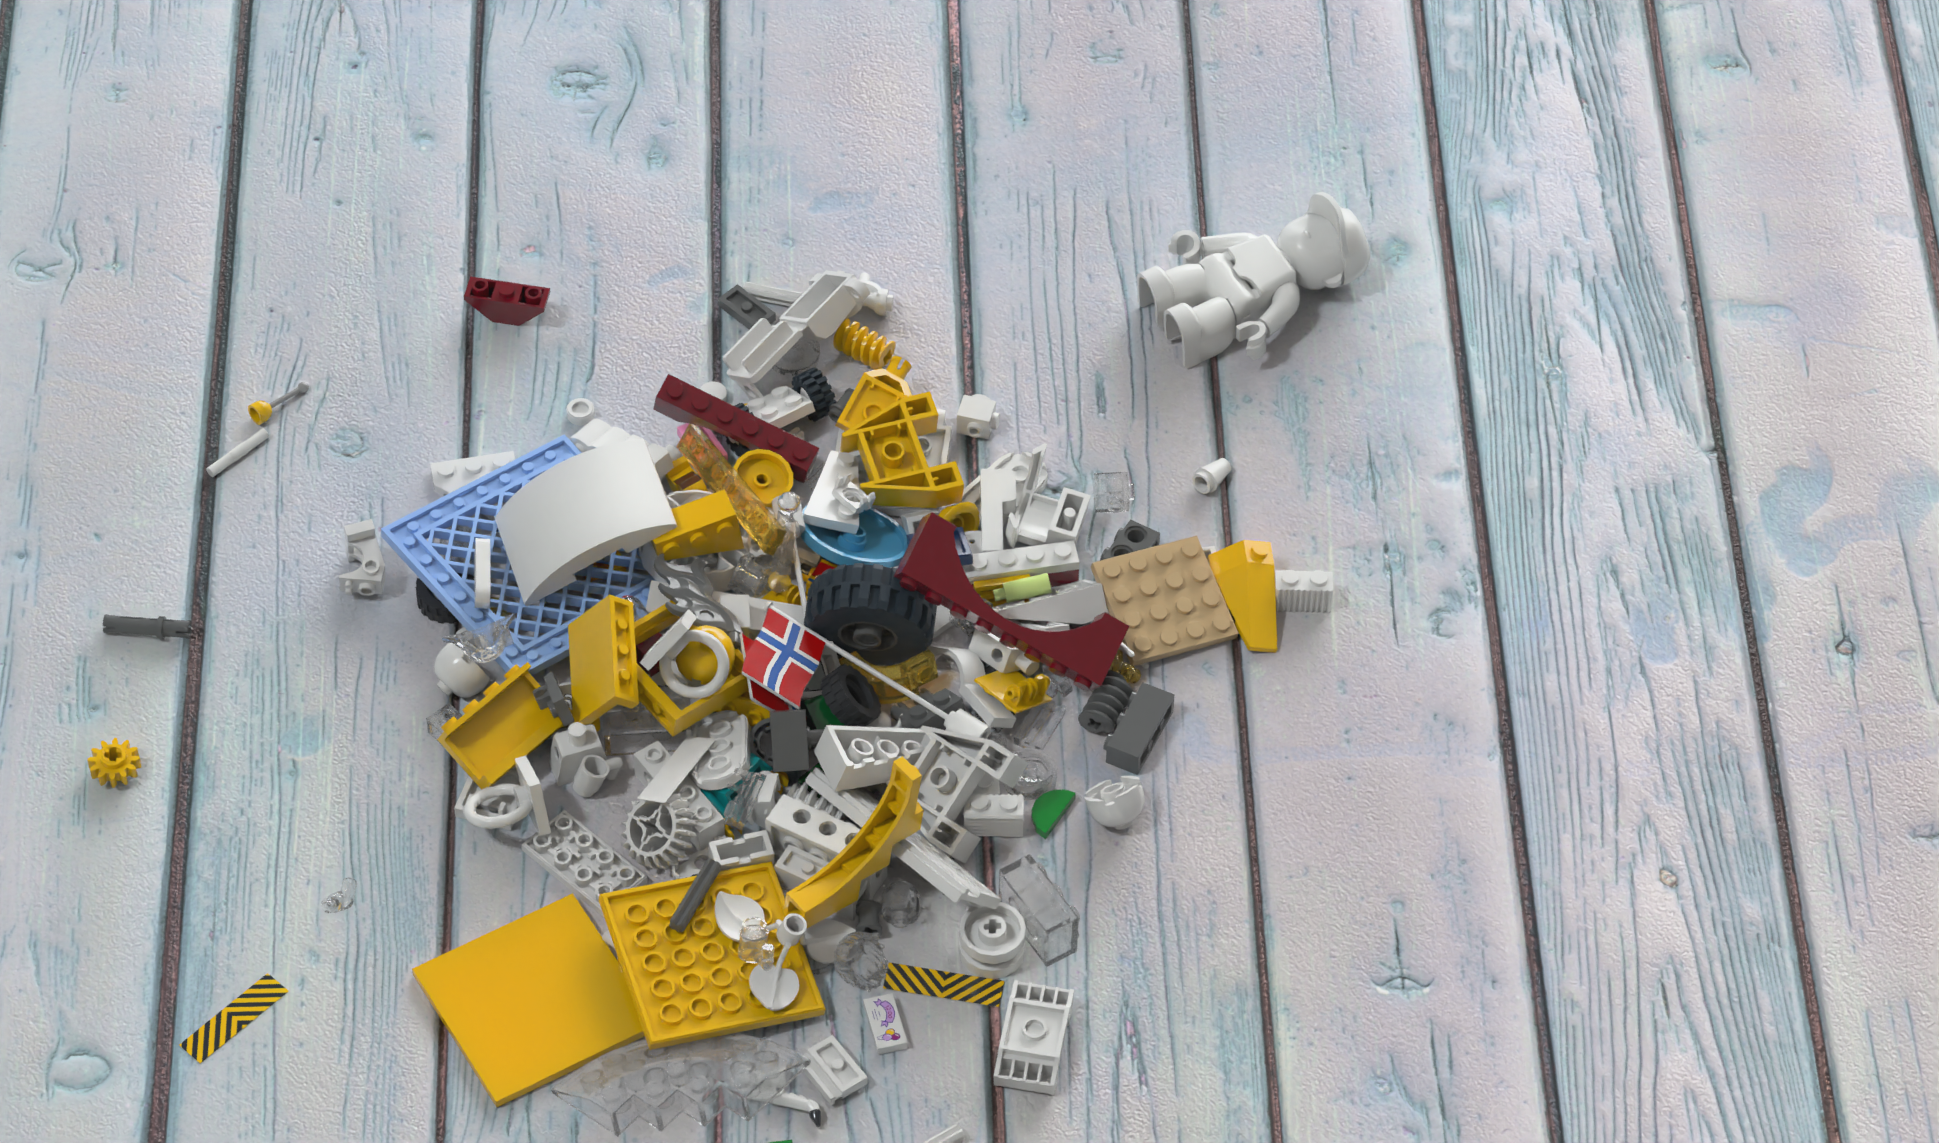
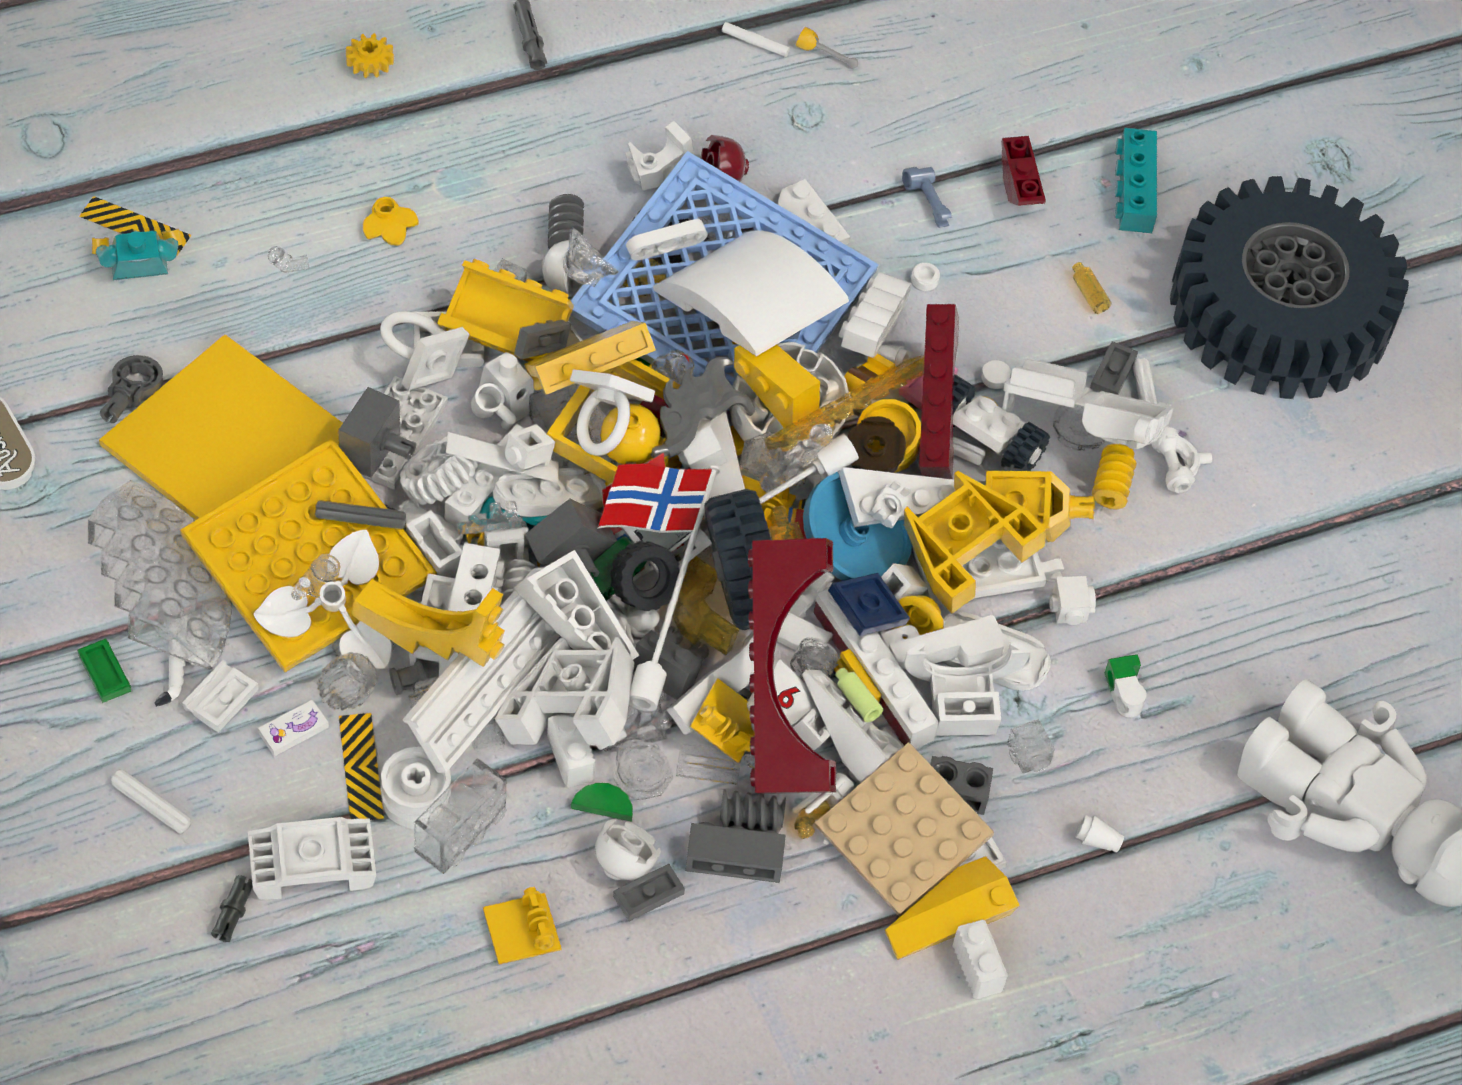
camera: 65 degrees right, 5 degrees up
(287, 1018) = (137, 253): none -> teal torso
(332, 803) = (389, 221): none -> yellow plate
(385, 509) = (726, 156): none -> dark red cylinder
(404, 661) = (564, 213): none -> dark grey piece
(450, 1064) = (125, 391): none -> dark grey pin
(468, 378) = (922, 179): none -> sand blue brick
(545, 221) = (1137, 180): none -> teal brick
(602, 861) = (373, 431): none -> dark grey brick
(648, 296) = (1091, 288): none -> clear yellow cylinder
(684, 748) = (524, 451): none -> white brick
(689, 147) = (1278, 324): none -> black wheel
(777, 475) = (888, 435): none -> dark brown plate
(1061, 1113) = (232, 908): none -> pearl dark grey pin
(1076, 409) = (1124, 686): none -> leg
(1156, 904) = (522, 927): none -> yellow hinge
(1158, 808) = (648, 892): none -> dark grey plate

